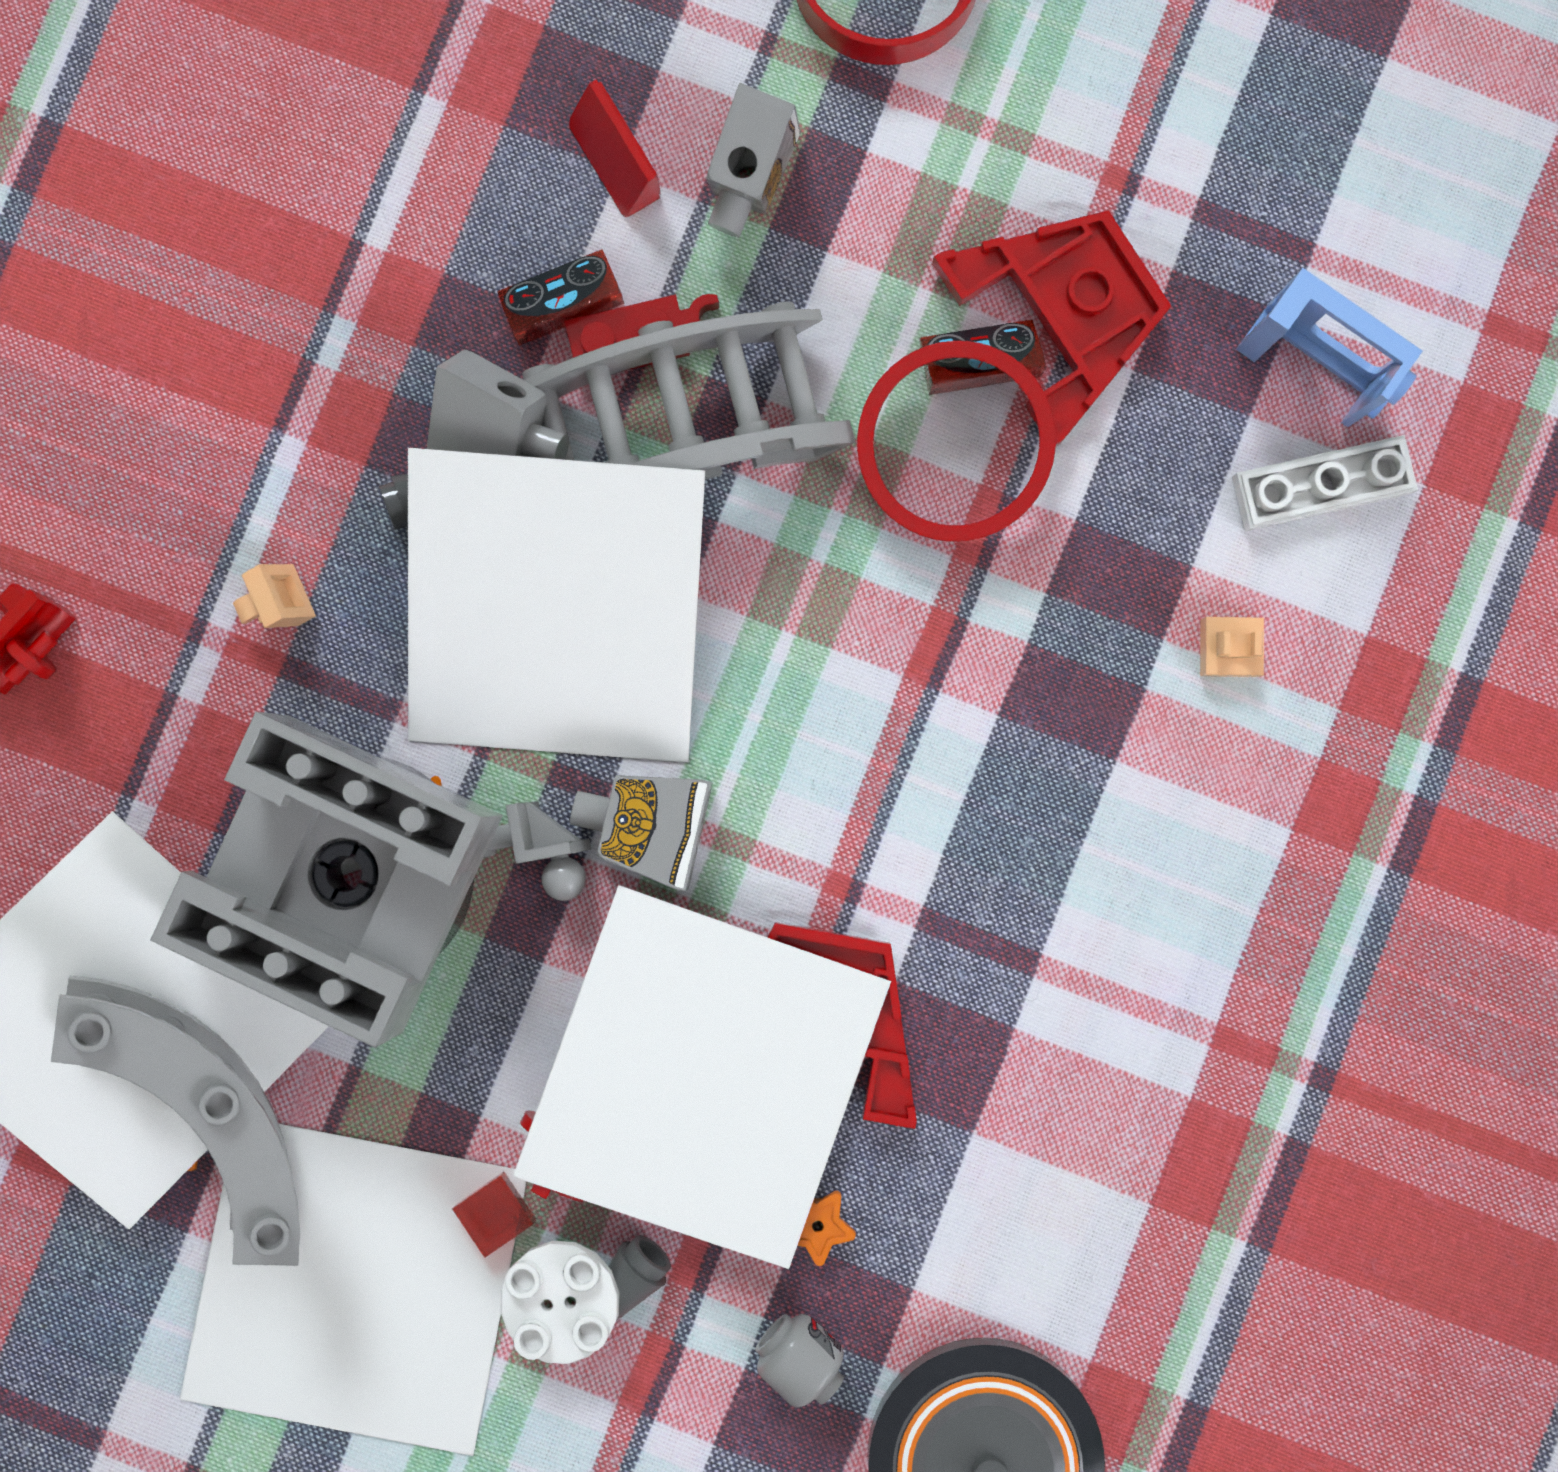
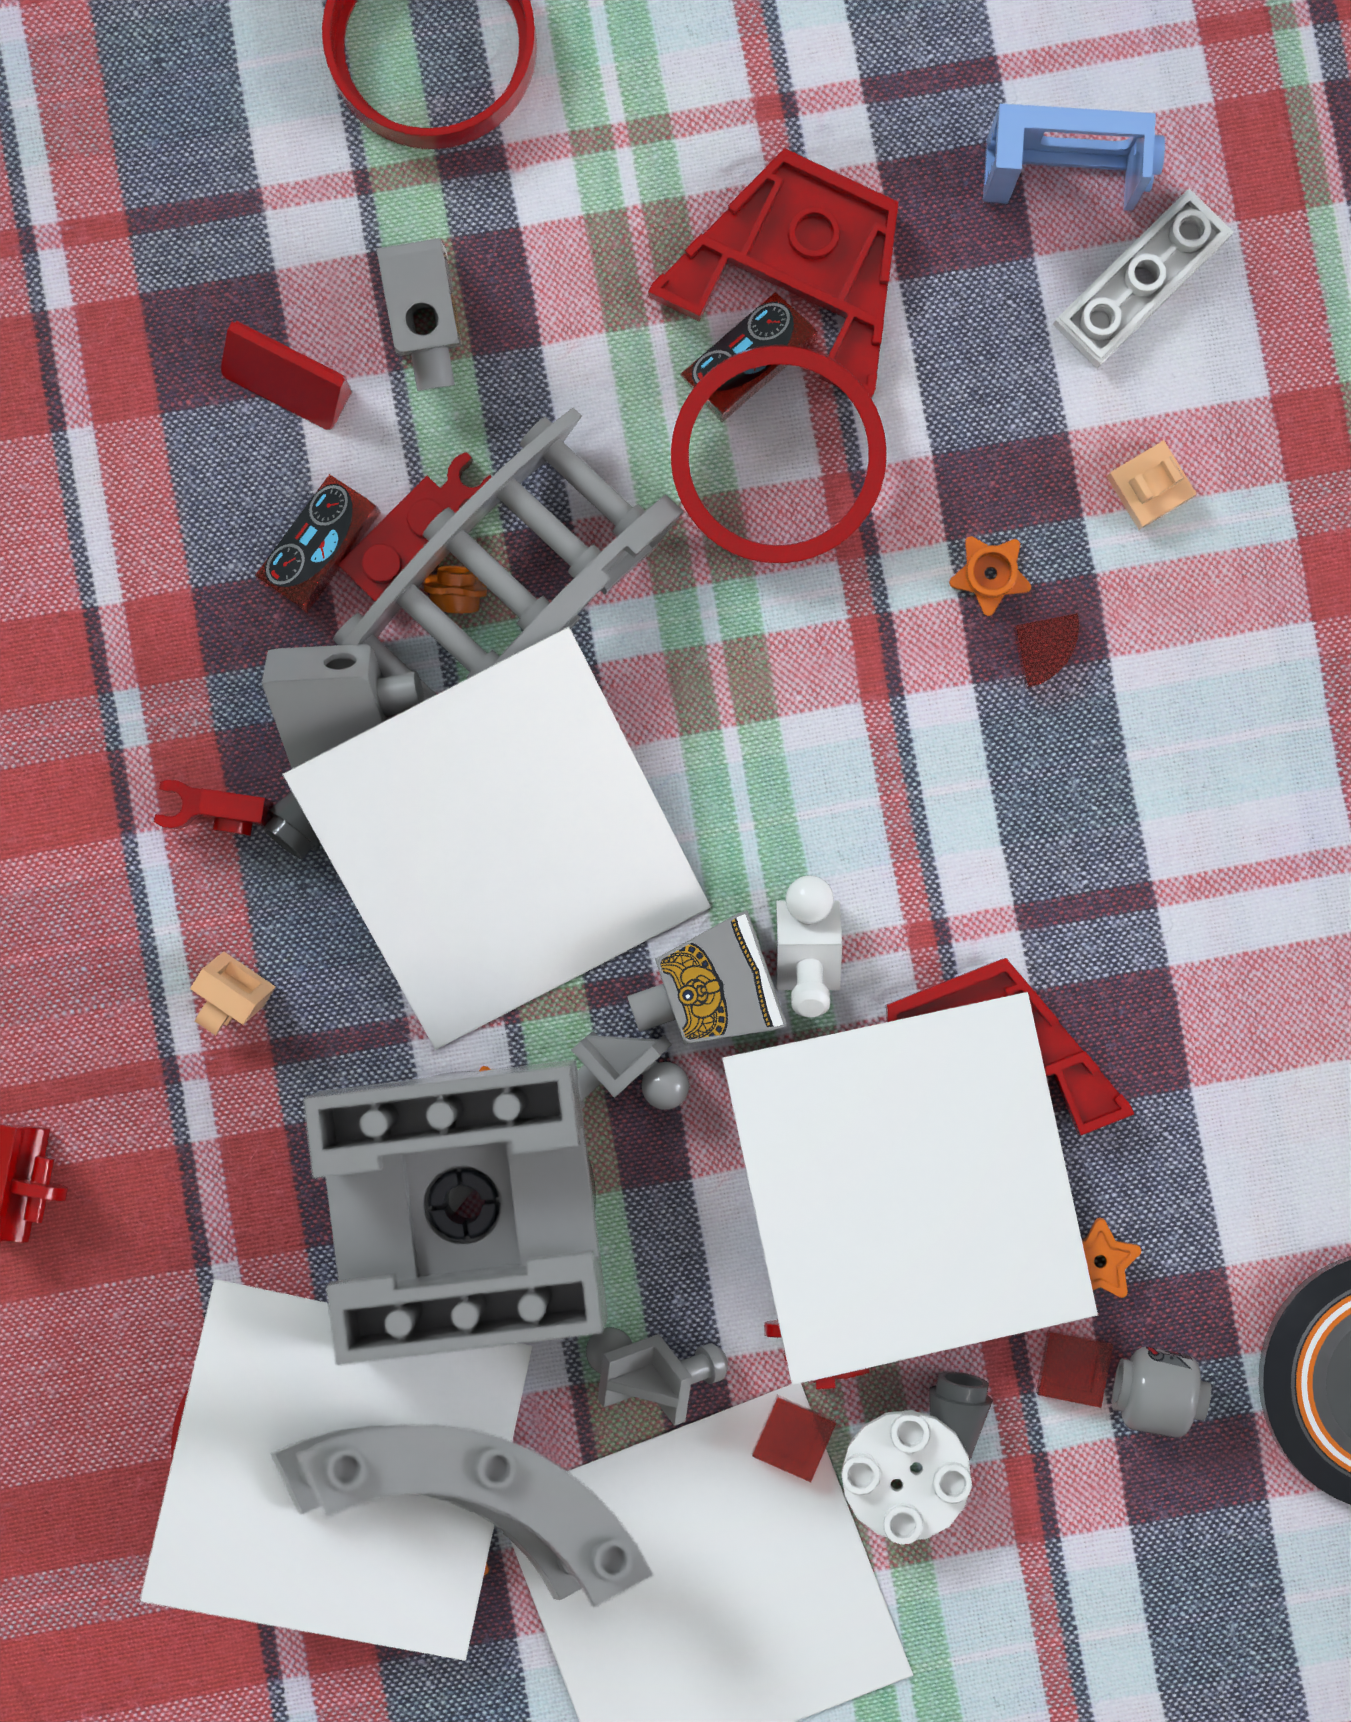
camera: 30 degrees left, 0 degrees up
(361, 460) = (231, 811): none -> red plate
(412, 1094) = (651, 1370): none -> light grey piece
(640, 395) = (455, 589): none -> orange plate
(743, 839) = (809, 945): none -> white piece
(746, 1296) = (1074, 1368): none -> clear red tile
(1072, 721) = (1045, 647): none -> clear red tile
(1077, 629) = (1004, 561): none -> orange plate

